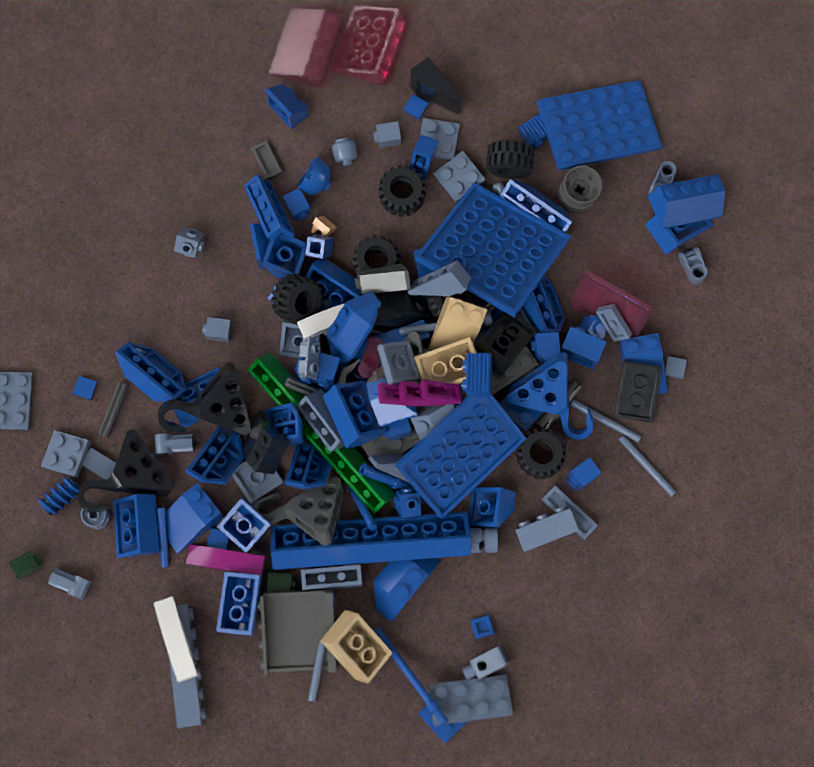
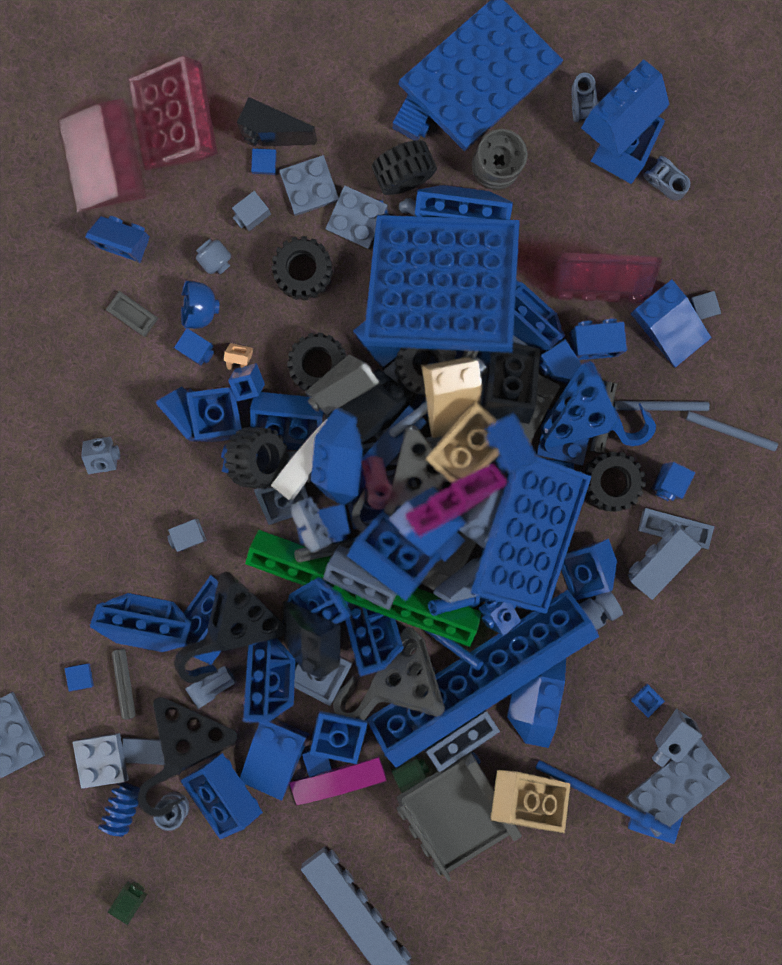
camera: 25 degrees left, 10 degrees up
(72, 584) = (191, 895): sand blue piece -> none
(163, 537) = (256, 792): blue bar -> none
(175, 639) = (334, 899): white slope -> none
(238, 603) = (379, 823): blue slope -> none
(268, 208) = (166, 370): blue fence -> none
(317, 672) = (501, 846): sand blue bar -> none
(398, 362) = (413, 476): sand blue plate -> none
(423, 155) = (304, 214): blue slope -> none
(442, 282) = (411, 355): sand blue slope -> none
(593, 325) = (596, 309): blue brick -> none
(613, 322) = (619, 294): sand blue plate -> none
(638, 391) = (681, 355): black tile -> none

